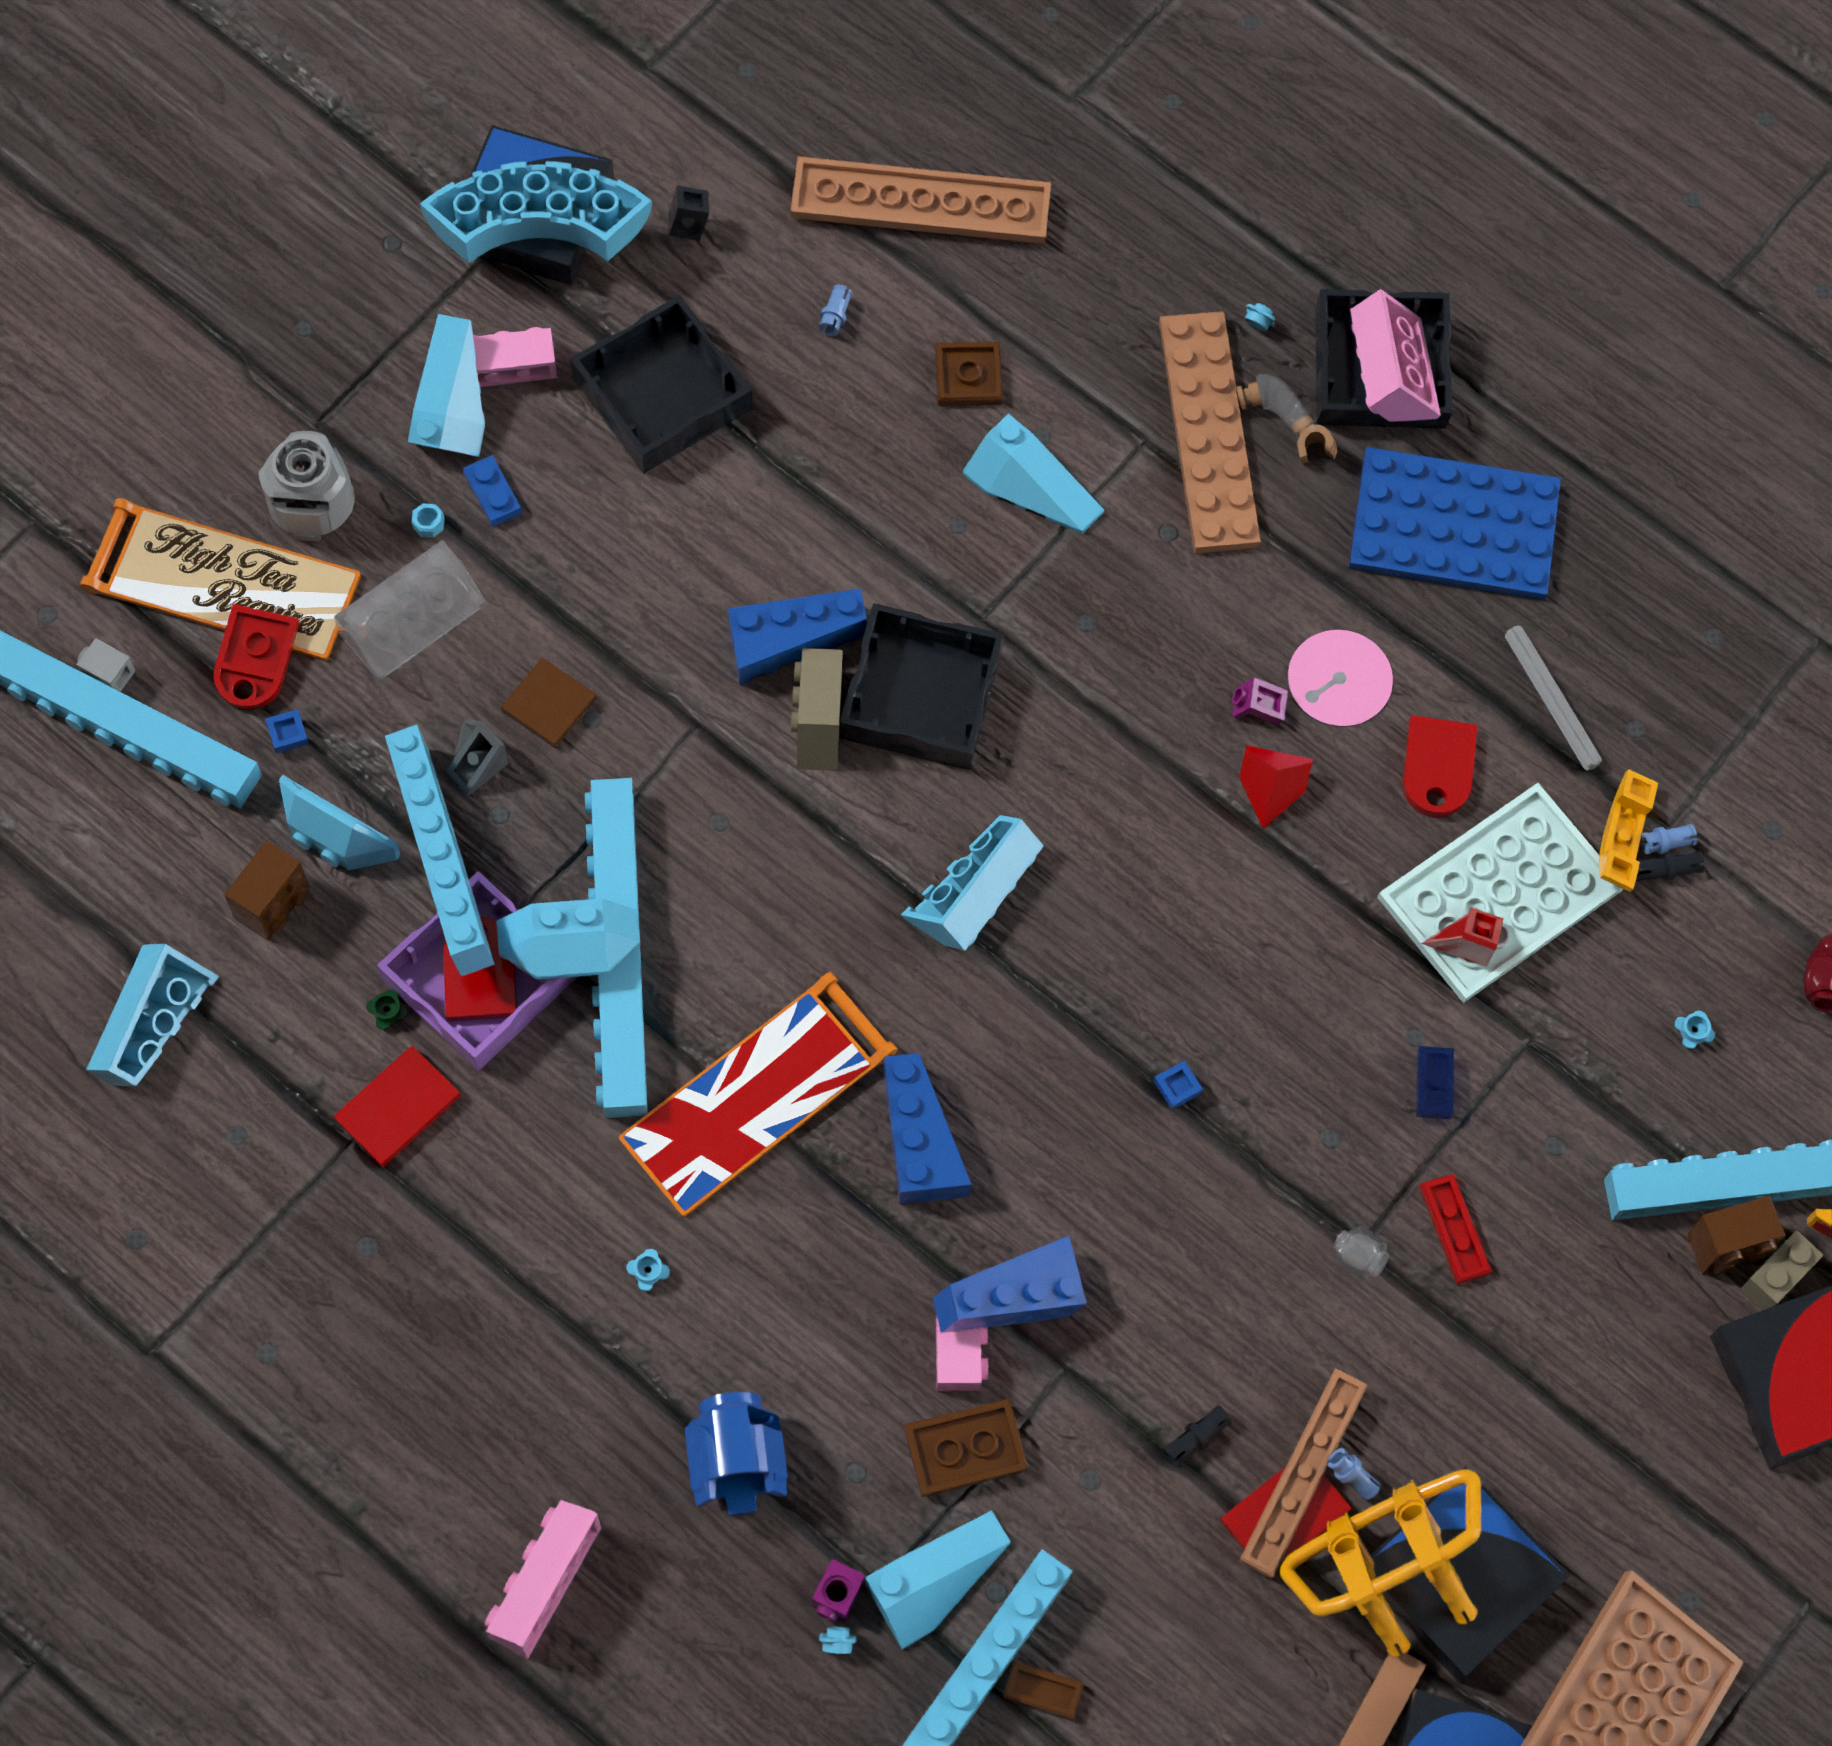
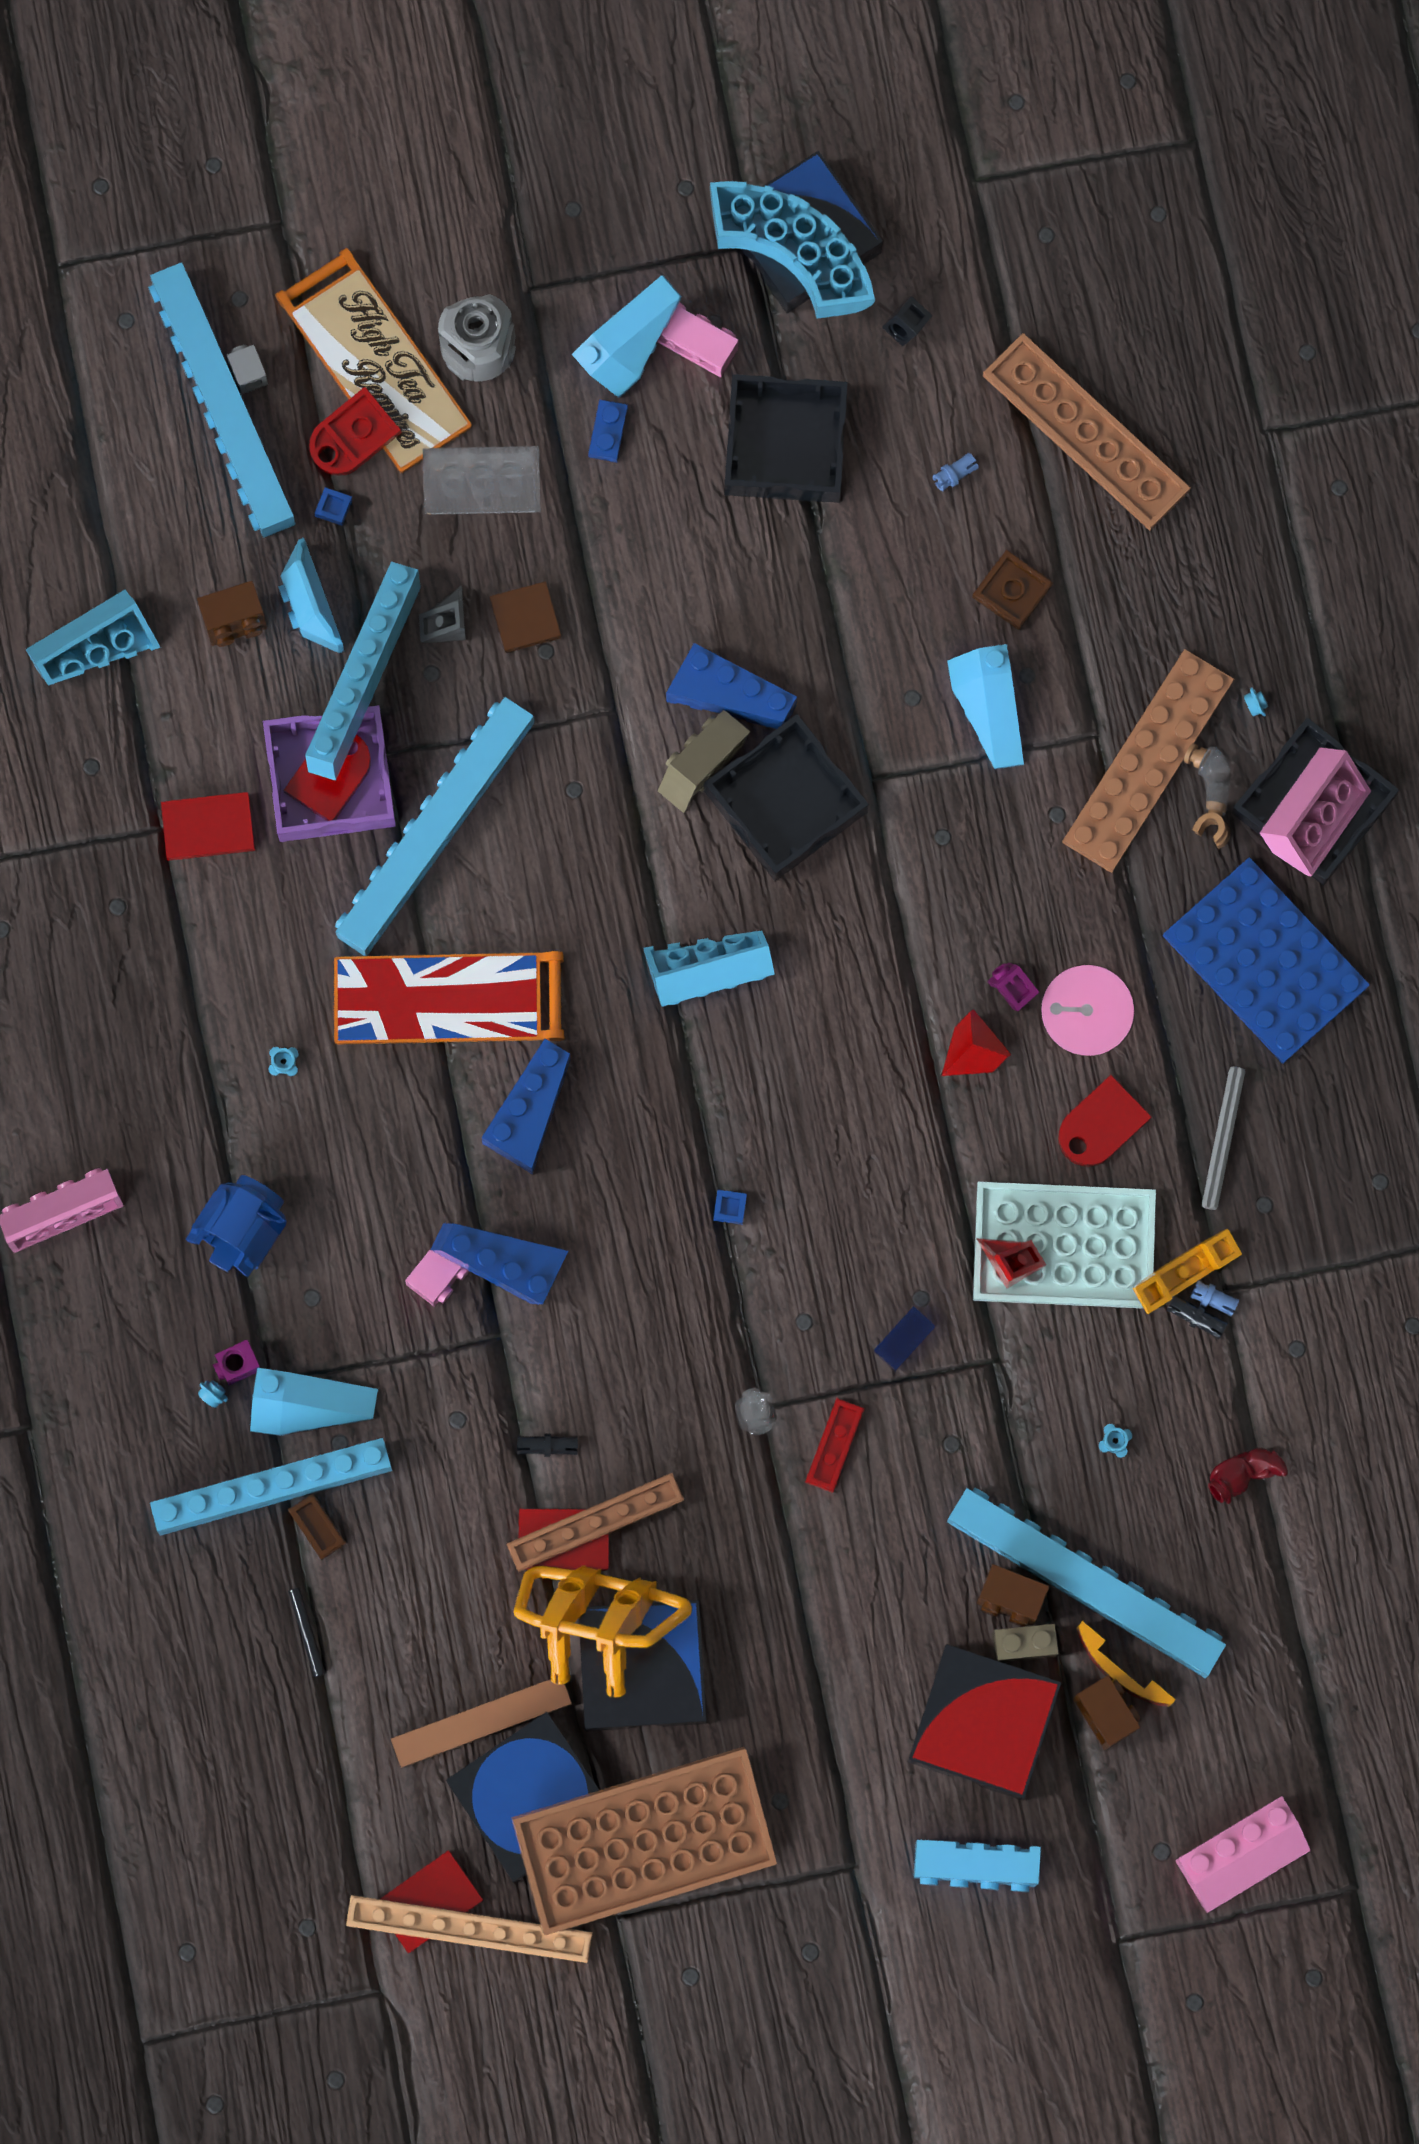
camera: 40 degrees right, 10 degrees up
(387, 999) = (245, 748): dark green plate -> none
(428, 520) = (546, 421): medium azure tile -> none
(568, 937) = (399, 800): medium azure wedge -> none
(965, 1448) = (392, 1336): reddish brown plate -> none
(1350, 1470) = (625, 1543): medium blue pin -> none

